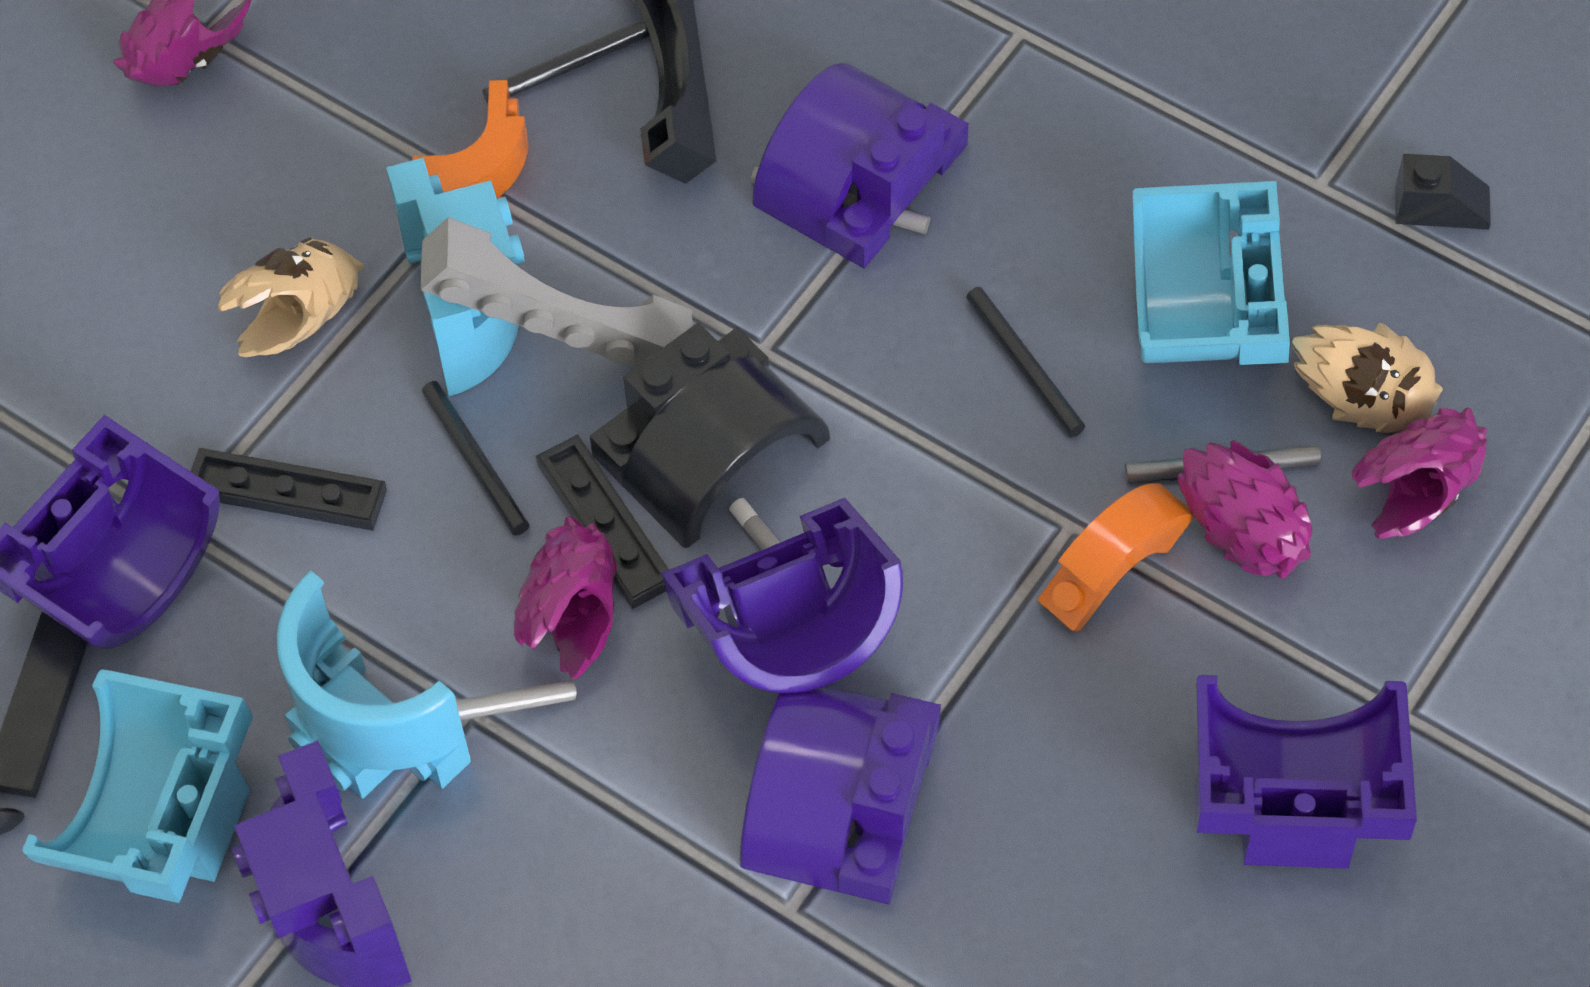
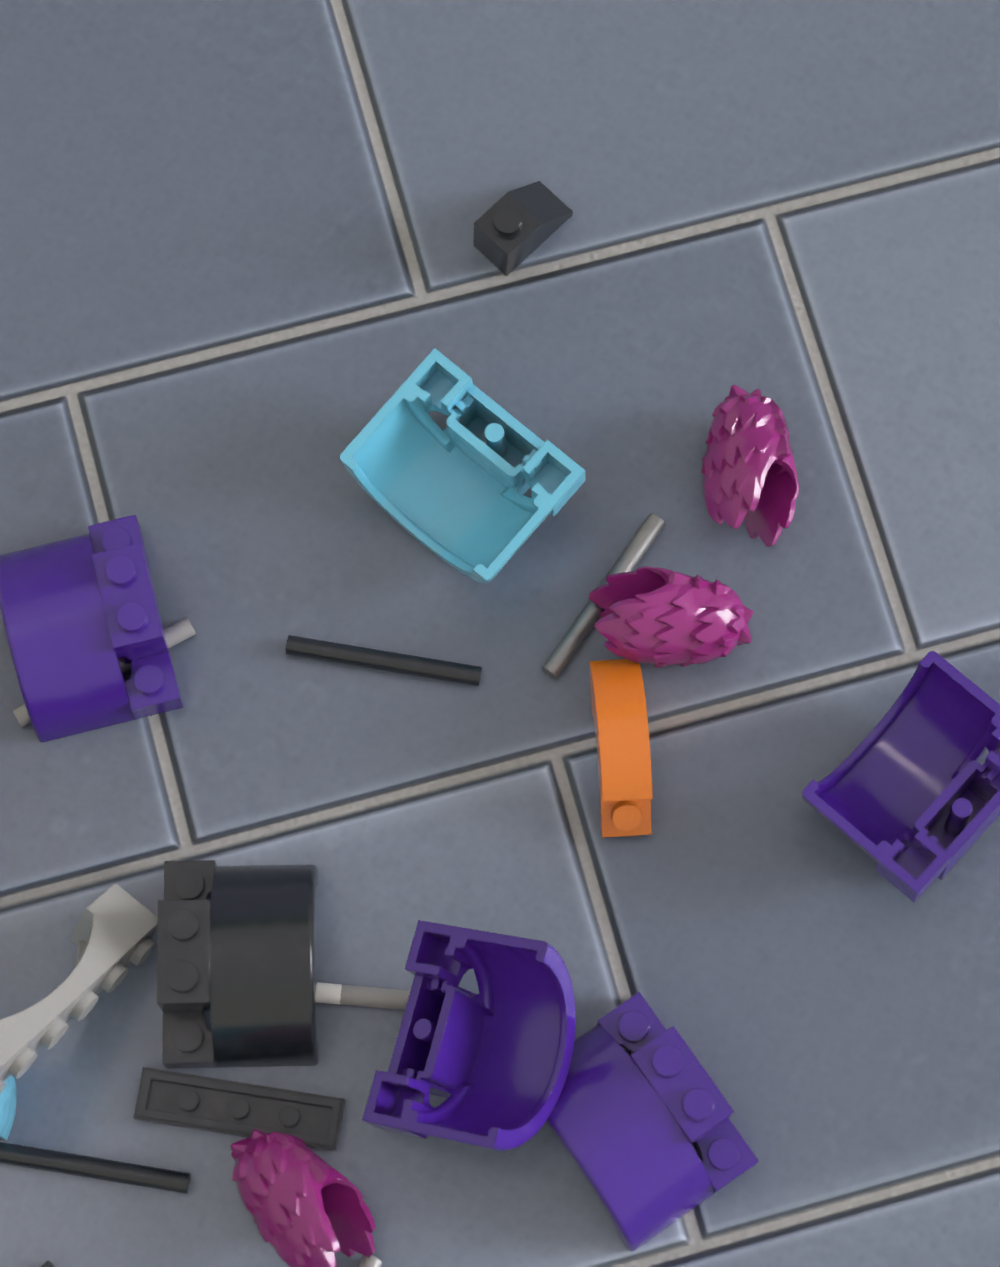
camera: 55 degrees left, 15 degrees up
(1368, 375) = (633, 427): tan head -> none

